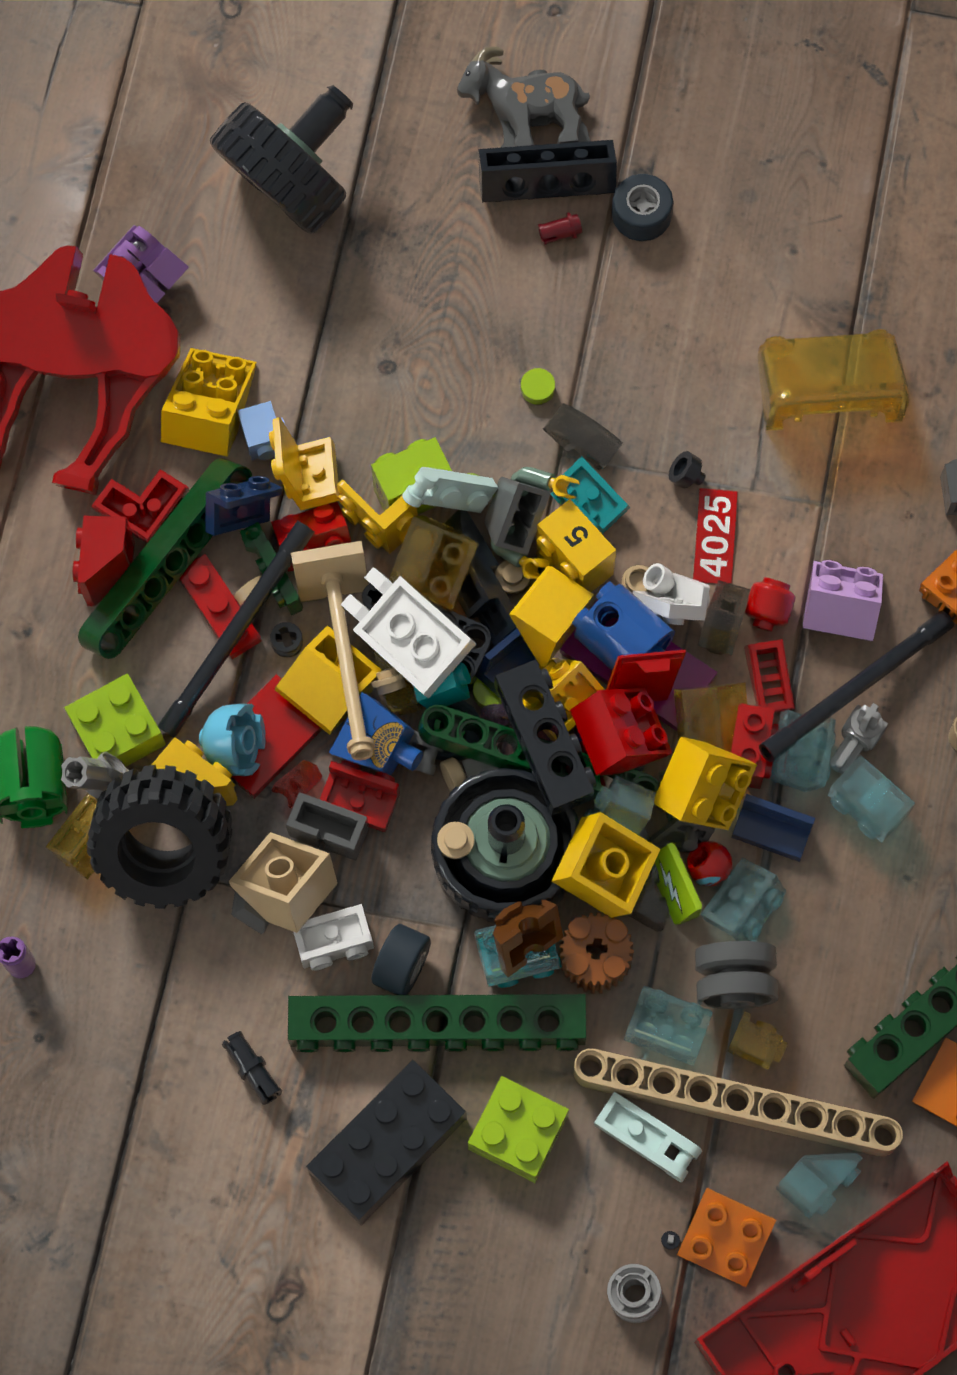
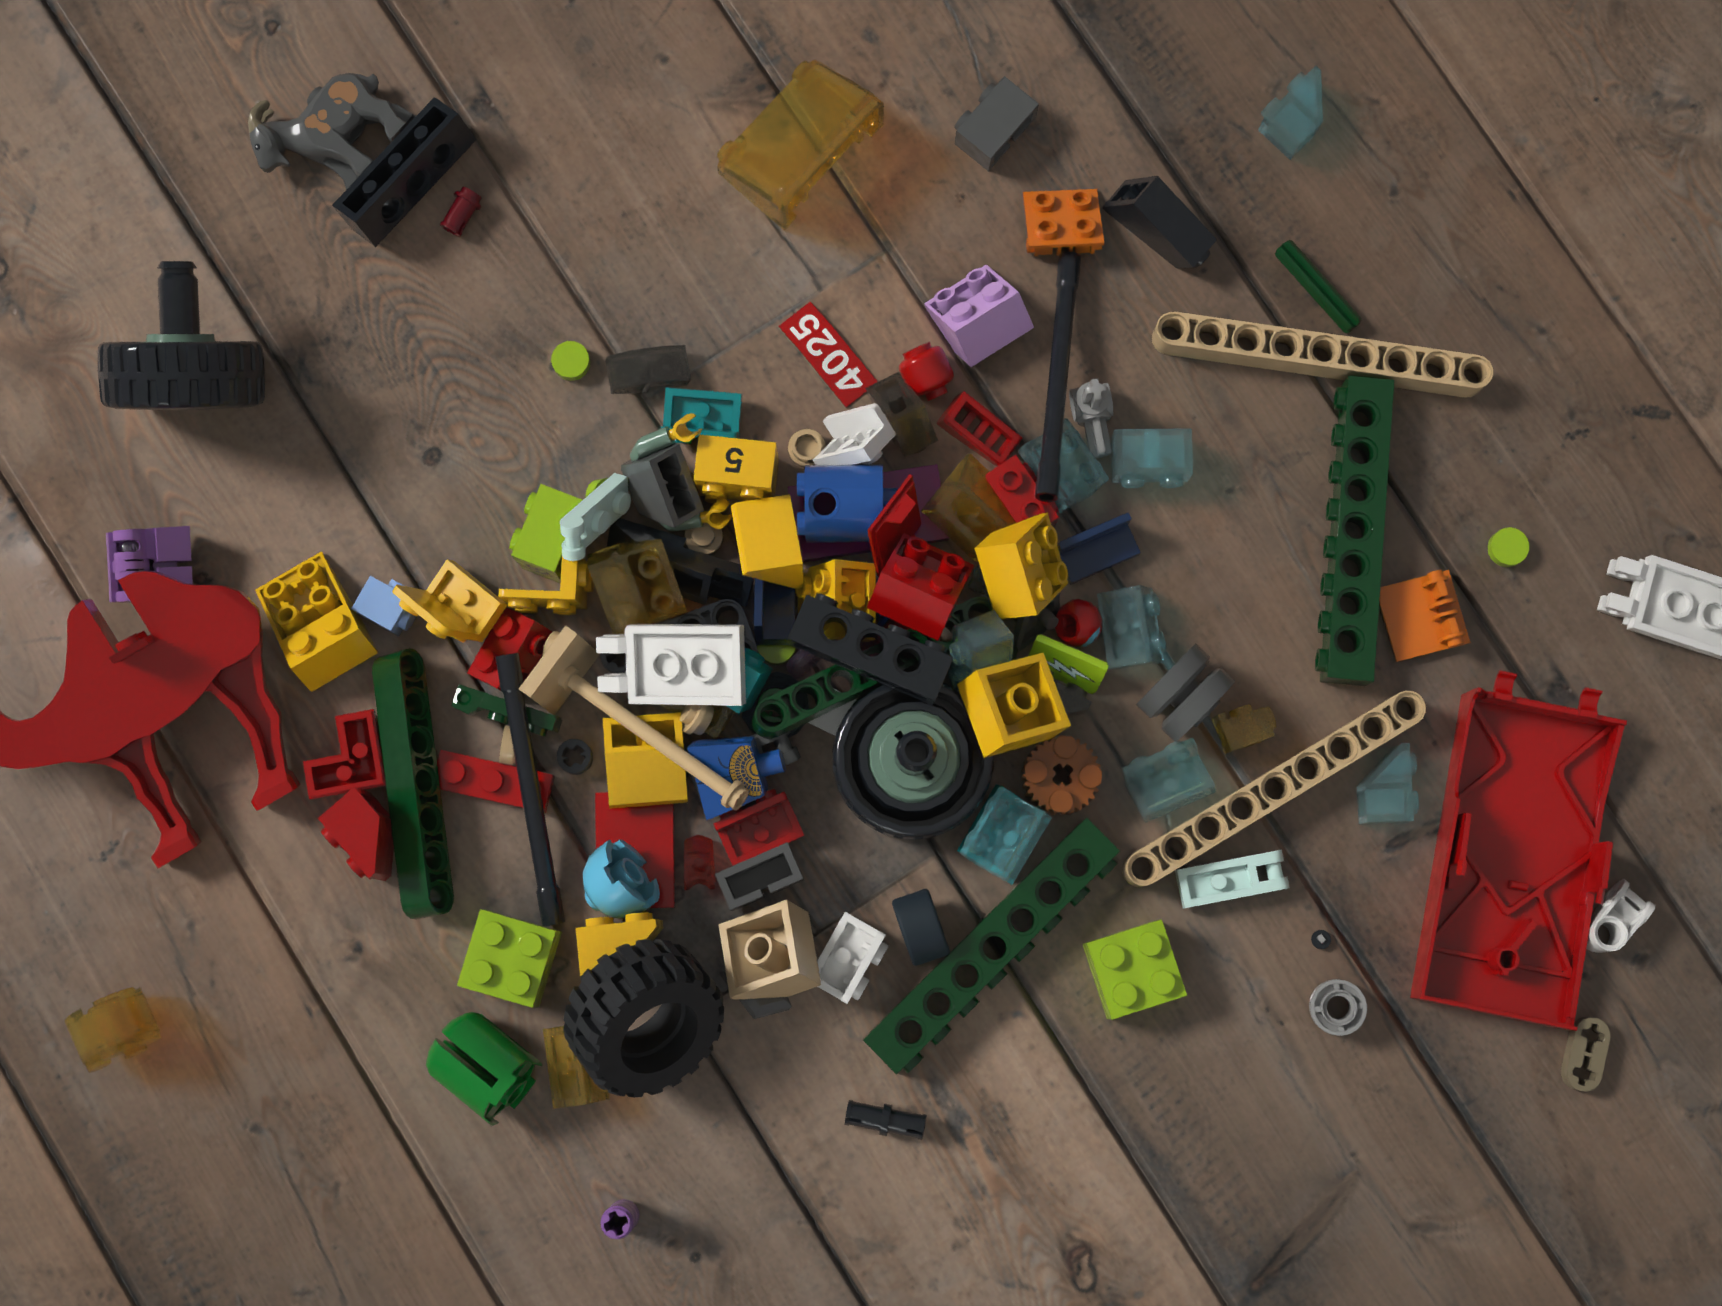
camera: 45 degrees left, 10 degrees up
(92, 773) = (543, 1015): light grey piece -> none
(239, 505) = (432, 685): dark blue bracket -> none
(387, 1142) = (1046, 1077): black brick -> none
(452, 772) = (815, 740): tan tile -> none
(455, 840) = (878, 796): tan plate -> none
(525, 930) = (1000, 818): reddish brown cylinder -> none
(642, 194) = (504, 119): black wheel -> none
(658, 579) = (820, 429): white hinge -> none
(686, 470) = (757, 322): black tile -> none
(726, 1237) = (1362, 898): orange hinge -> none

